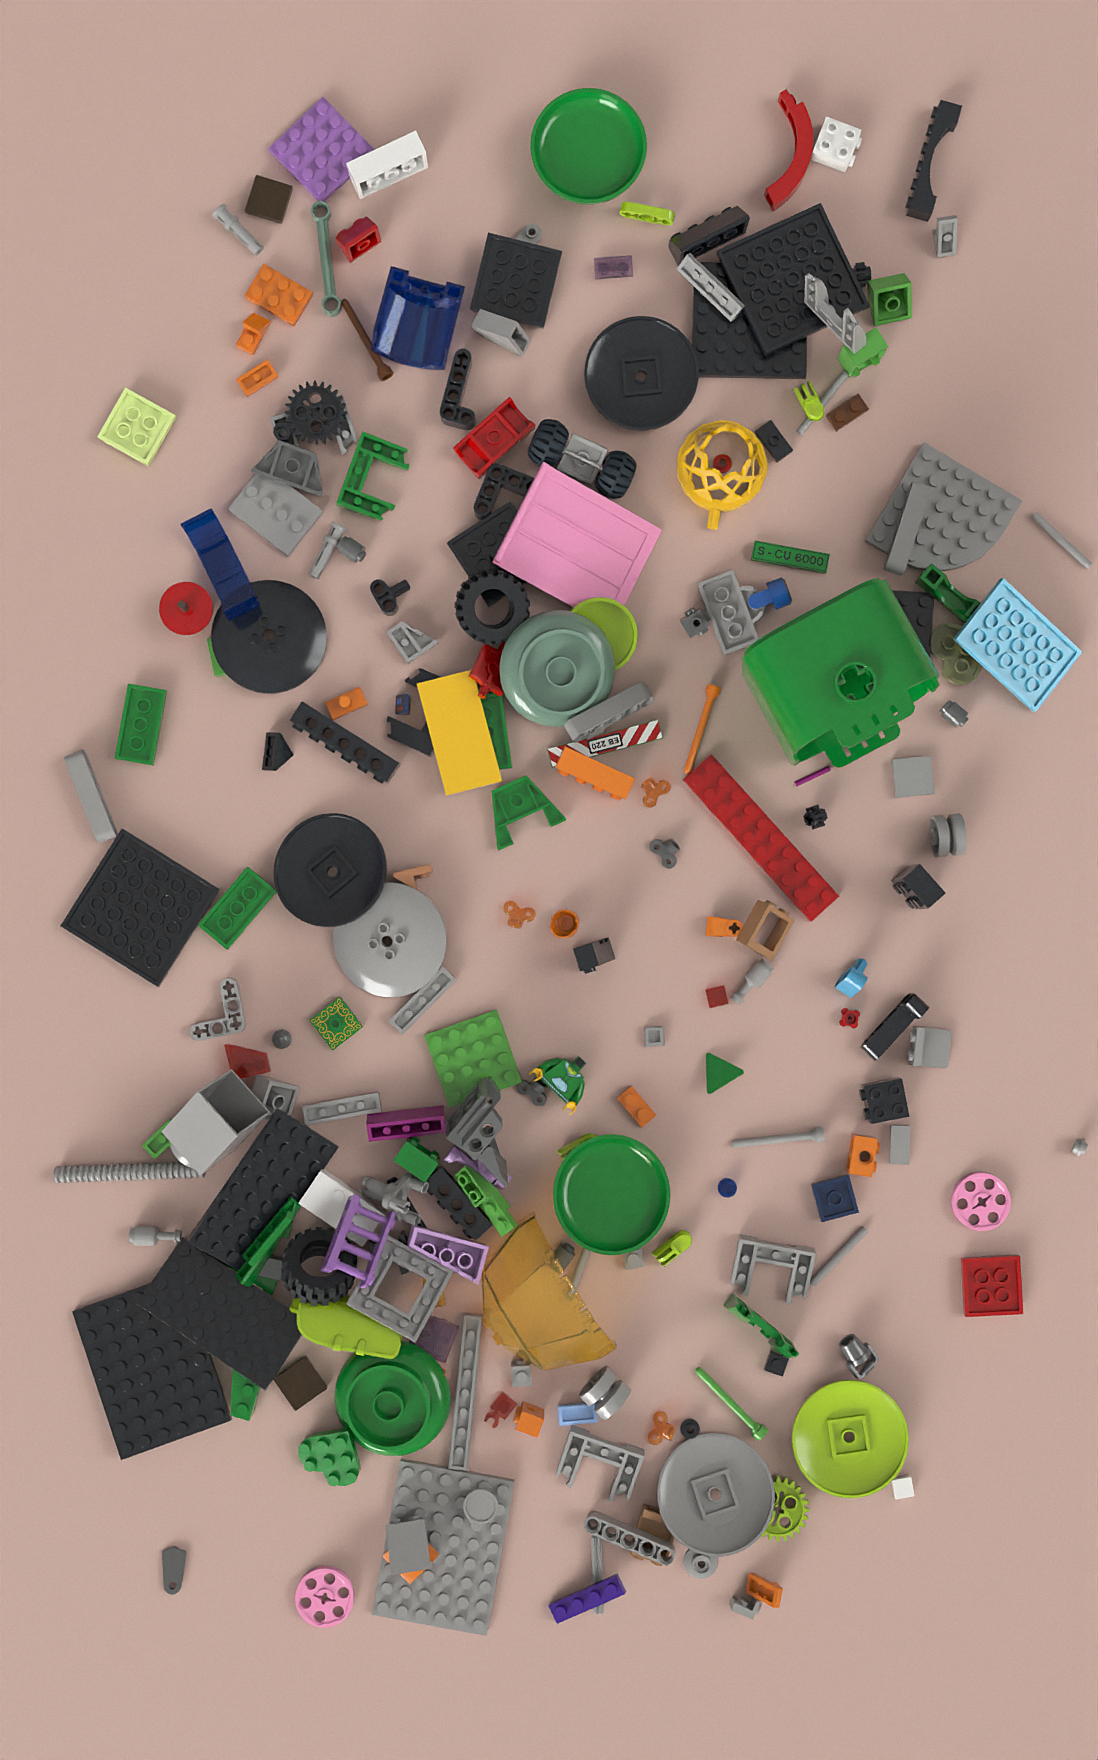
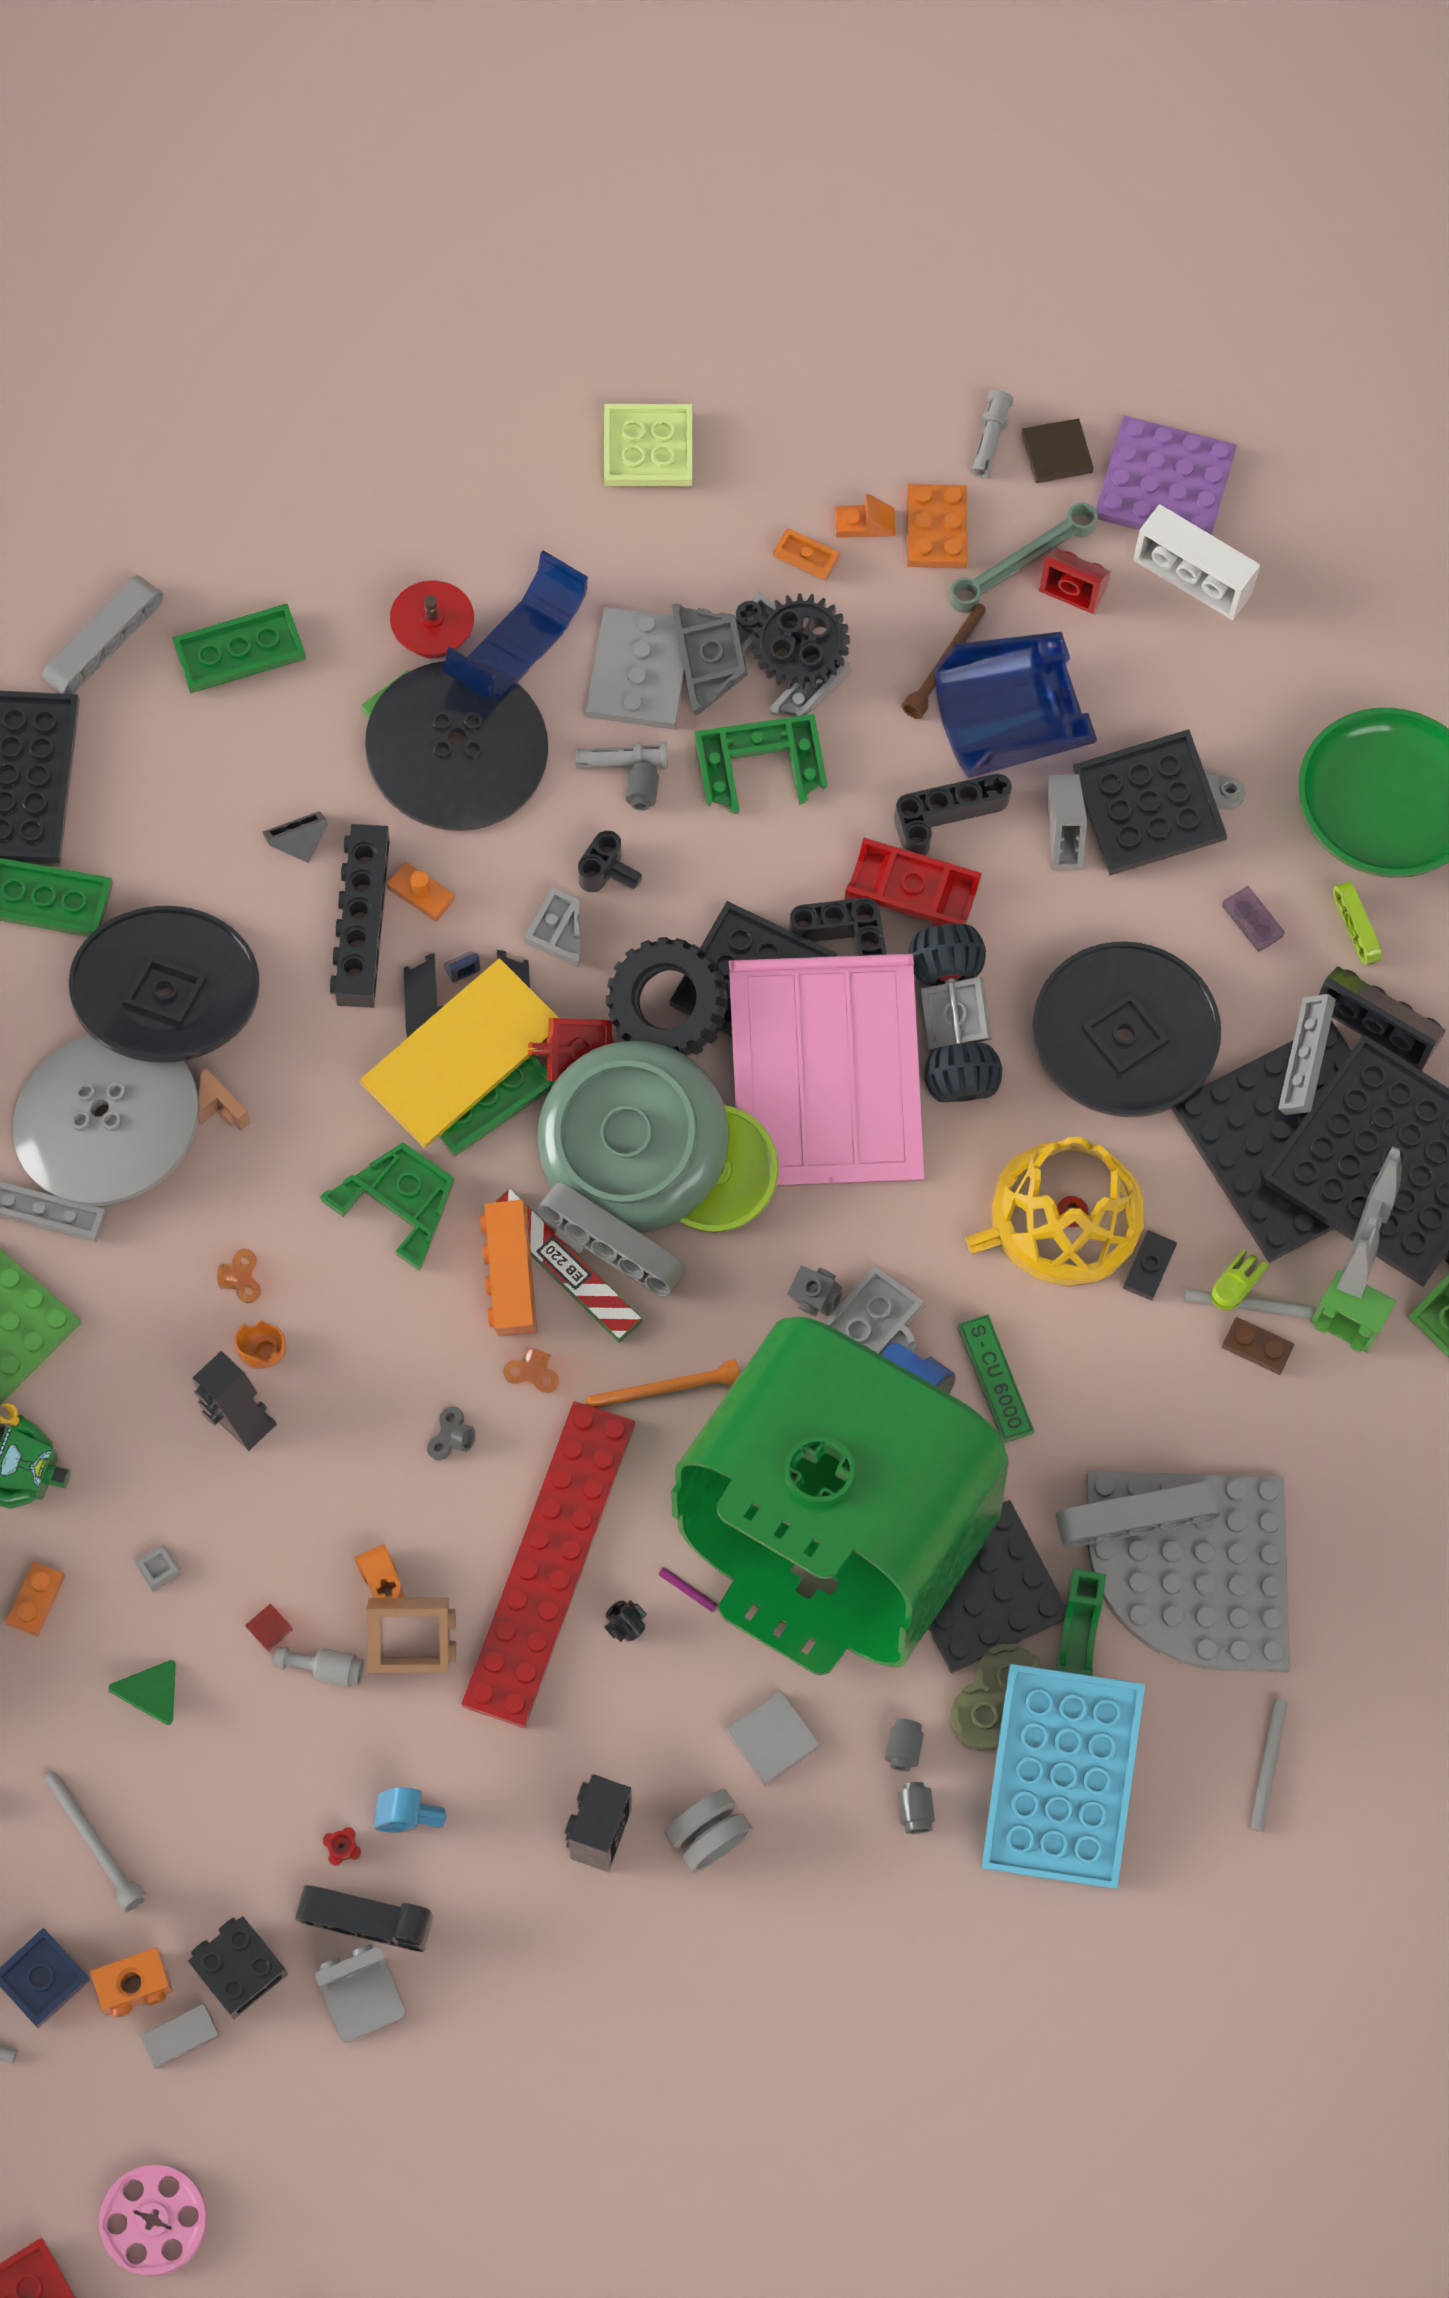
camera: 60 degrees right, 20 degrees down
(988, 726) = (916, 1808): none -> dark grey brick

